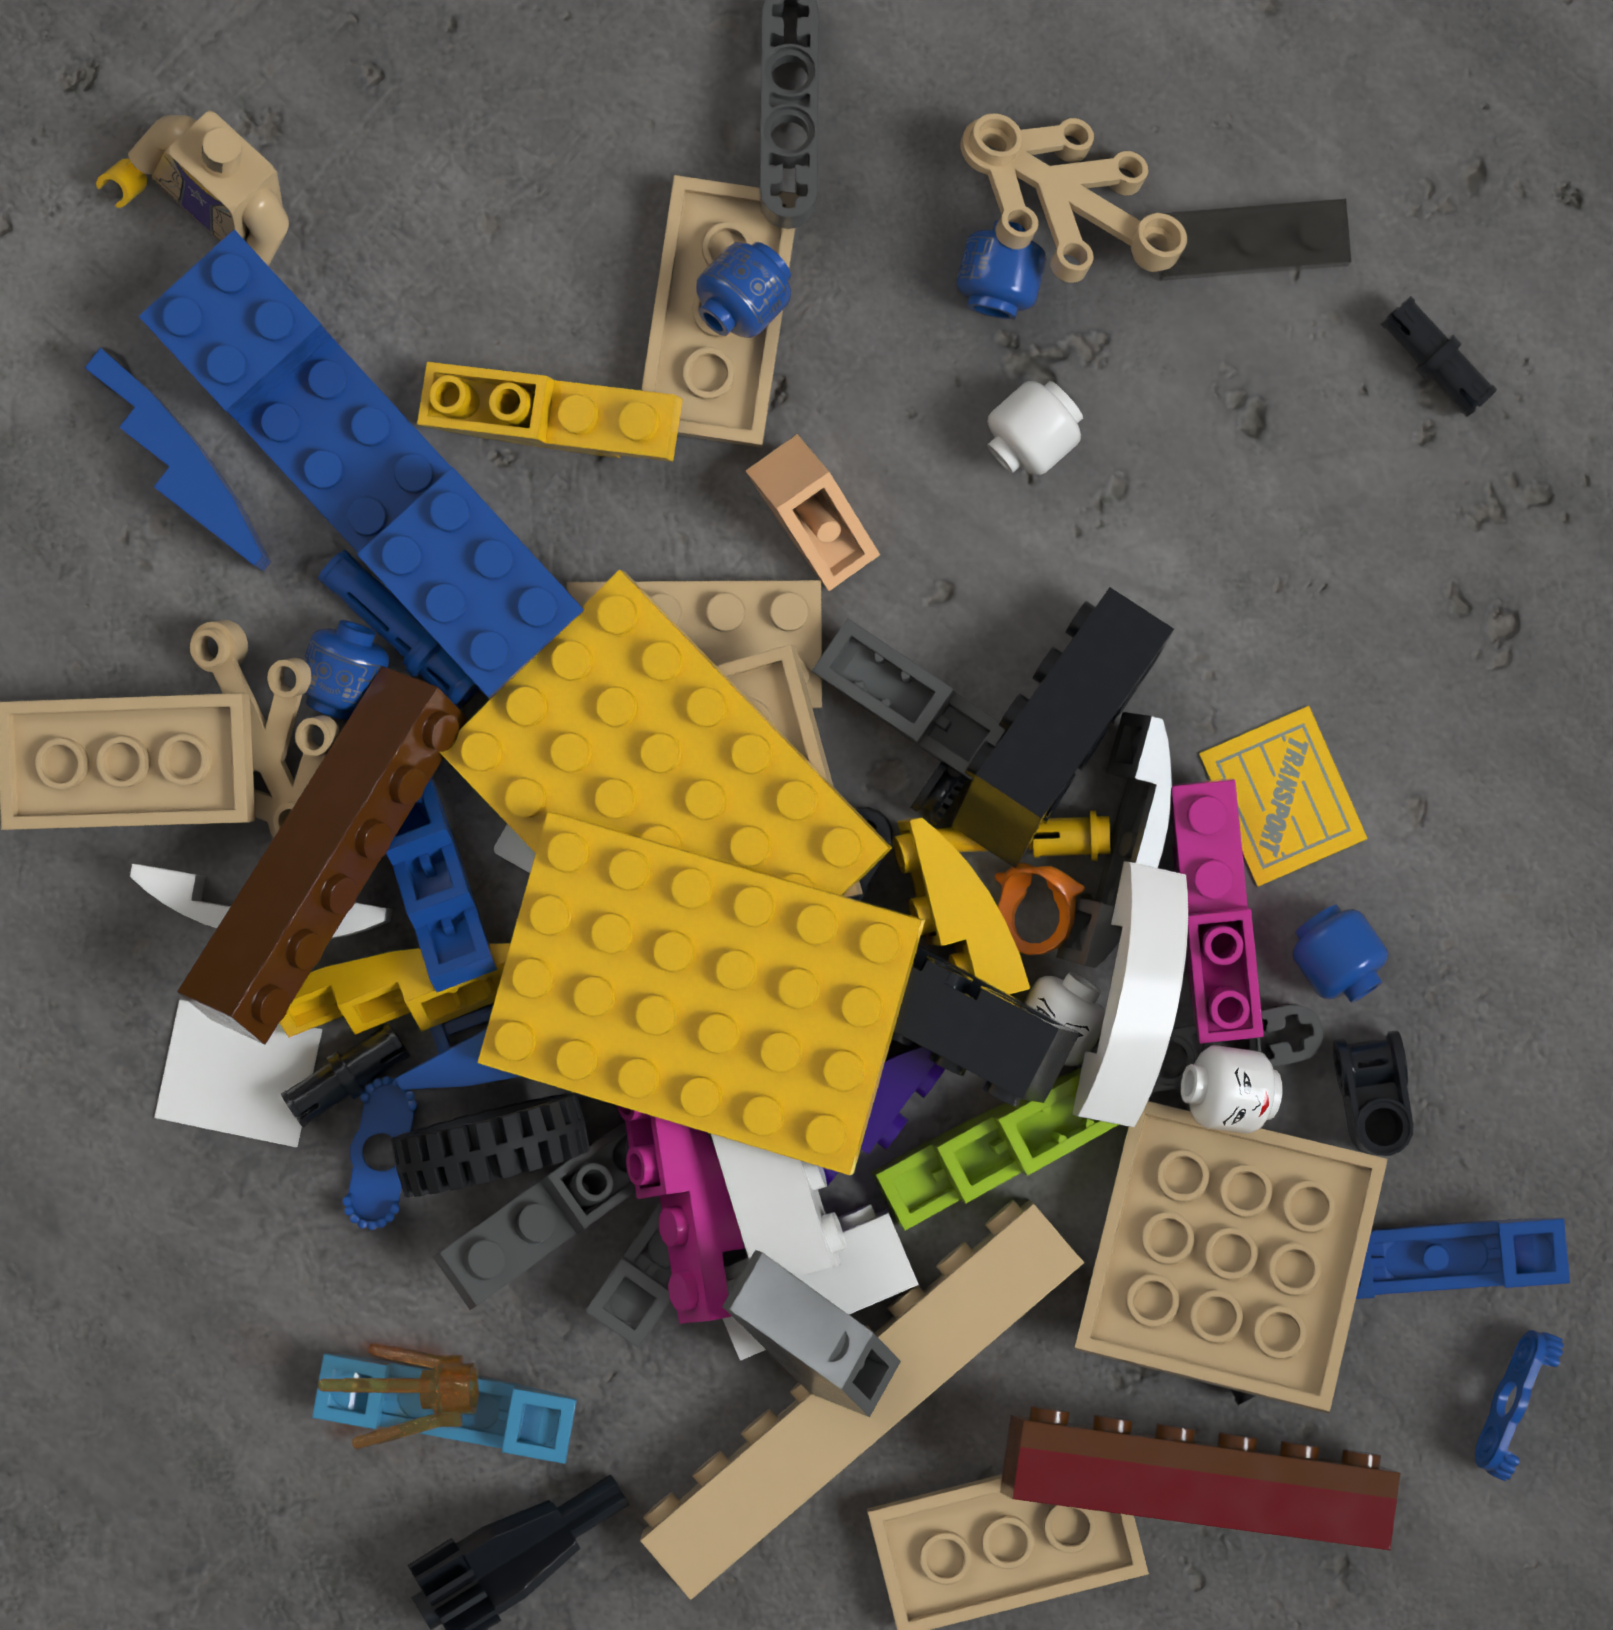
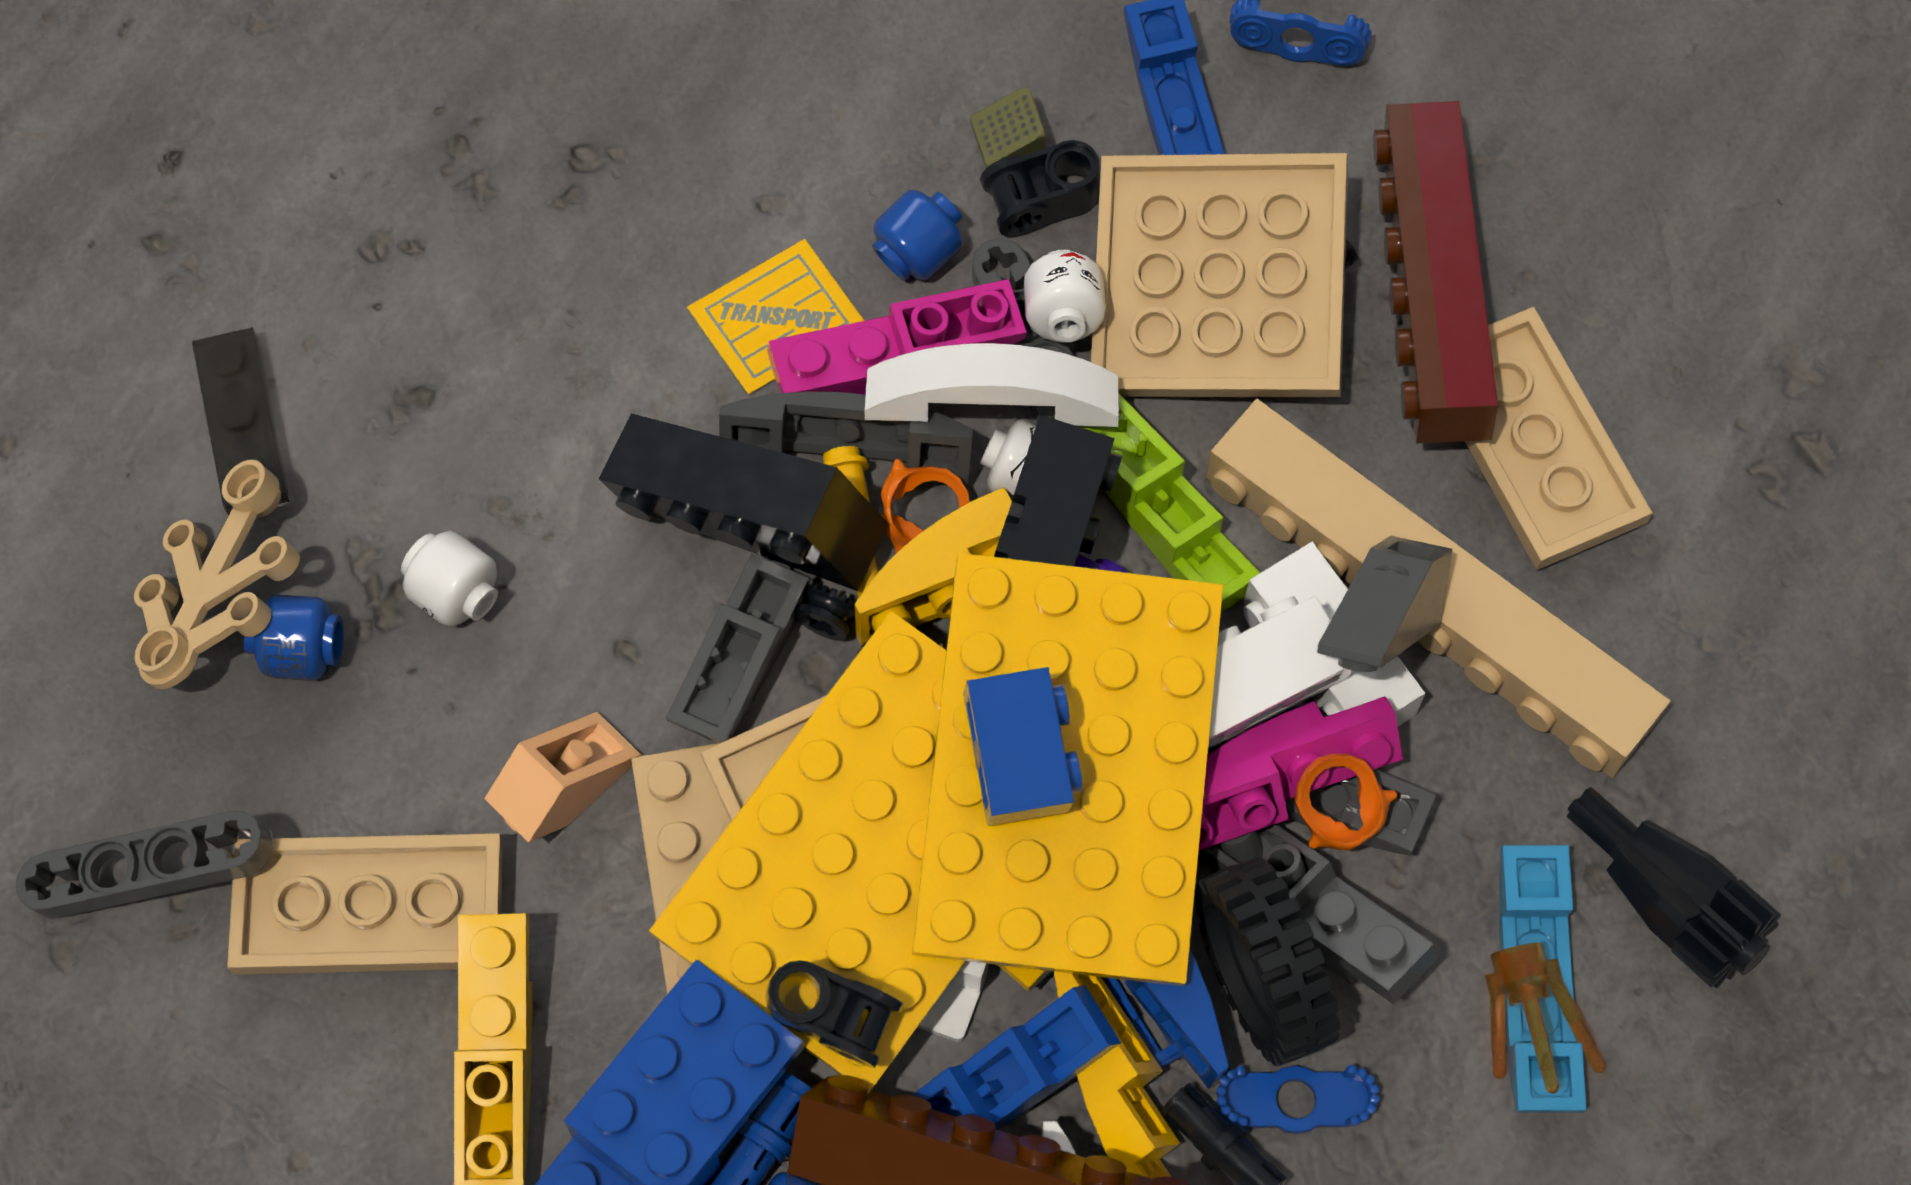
camera: 100 degrees left, 20 degrees down
(498, 737) = (836, 1011): none -> black piece
(614, 1241) = (1372, 799): none -> orange piece
(706, 943) = (1020, 746): none -> blue brick
(743, 289) = (340, 865): blue head -> none
(1438, 356) = (336, 240): black pin -> none
(1453, 1071) = (1008, 127): none -> olive slope

